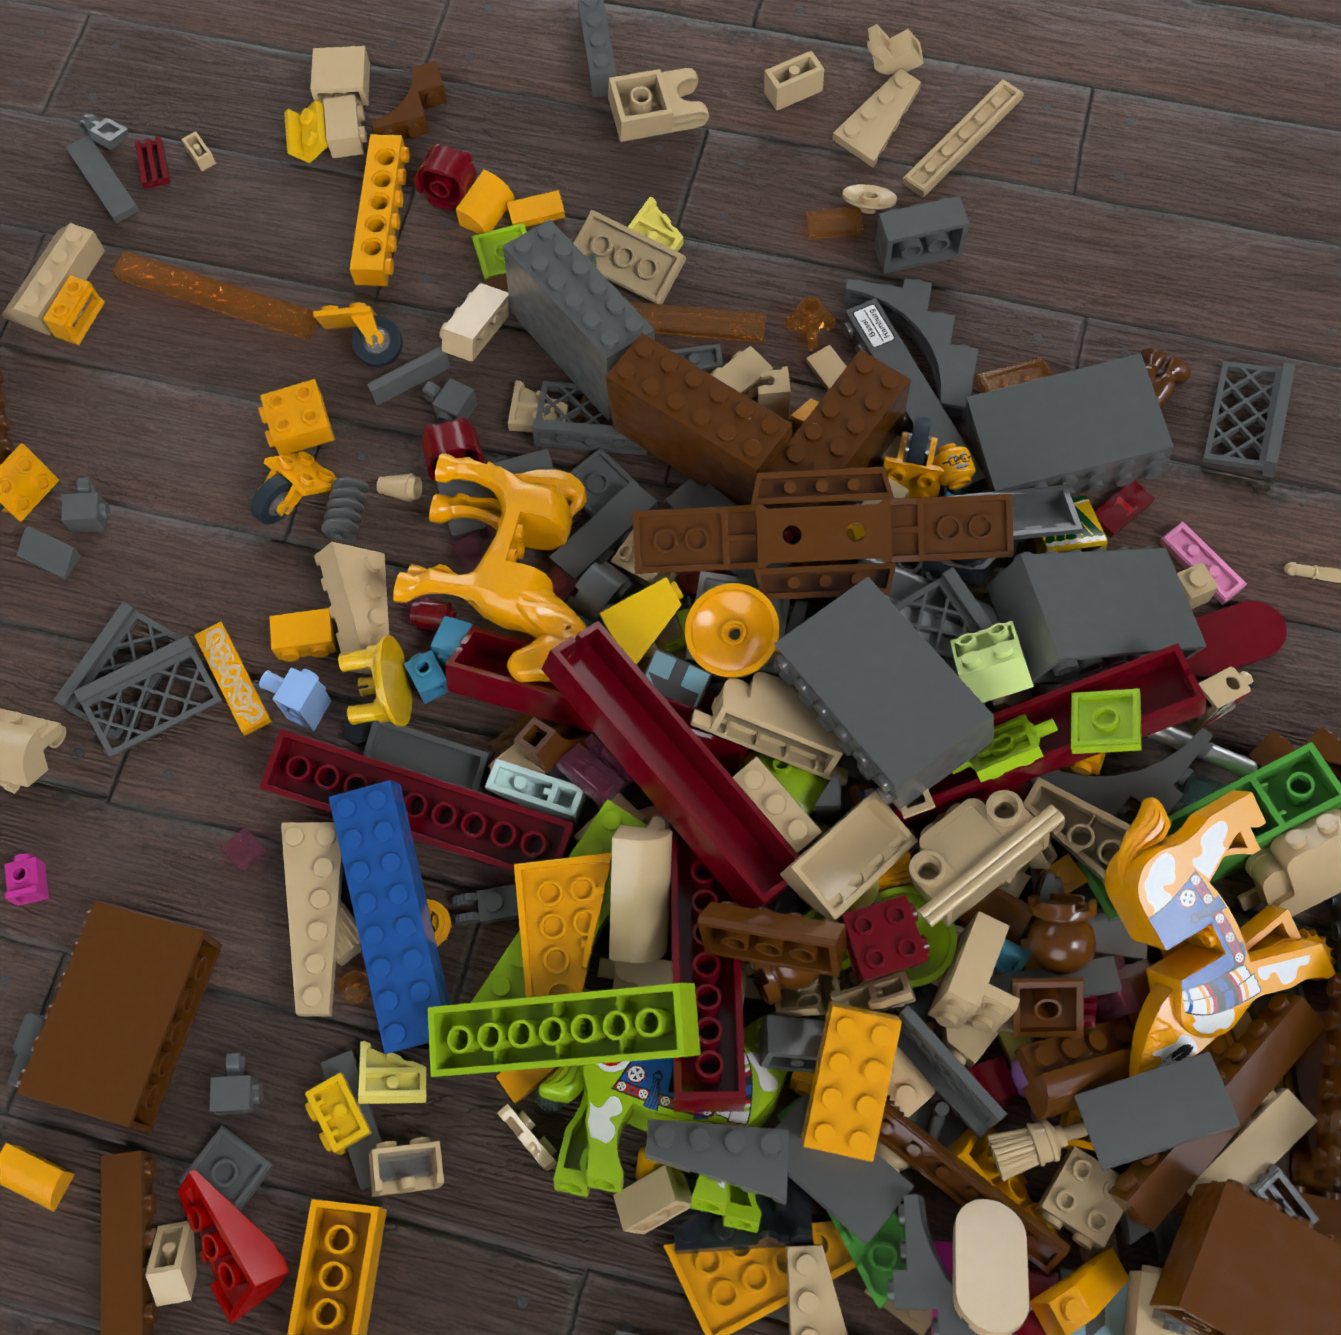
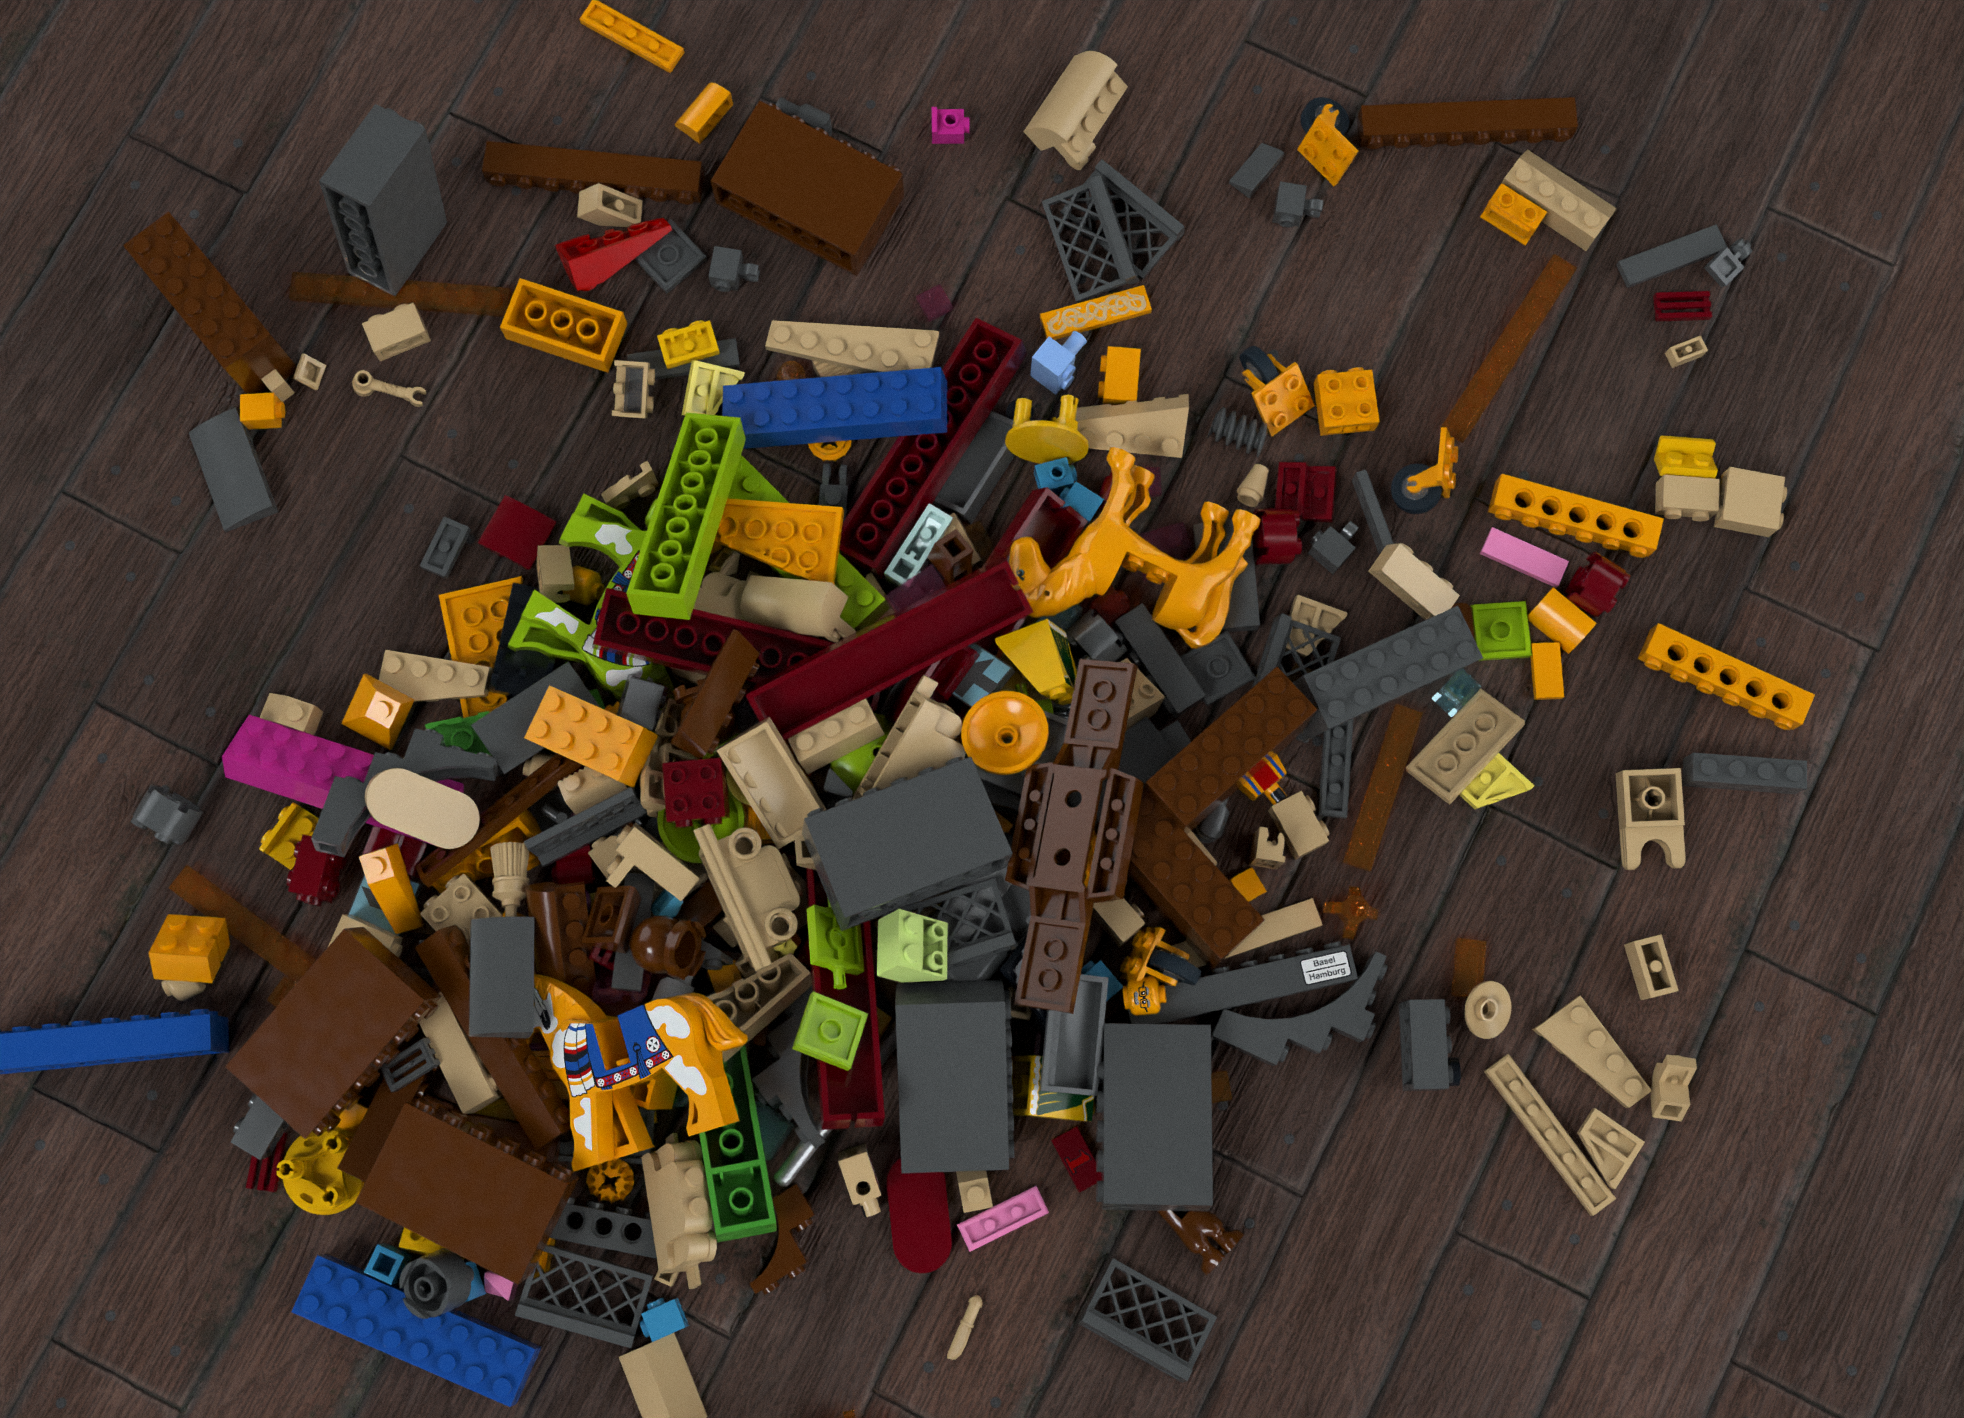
camera: 95 degrees right, 10 degrees up
(396, 440) = (1307, 490): none -> dark red slope
(408, 117) = (1684, 565): reddish brown arch -> none
(428, 246) = (1524, 557): none -> bright pink tile
(510, 73) = (1794, 700): none -> light orange brick
(609, 1268) = (516, 532): none -> dark red slope
(724, 1153) = (559, 626): dark grey wing -> none
(960, 90) = (1609, 1146): none -> tan wing
(1013, 375) = (1237, 1094): clear orange tile -> none

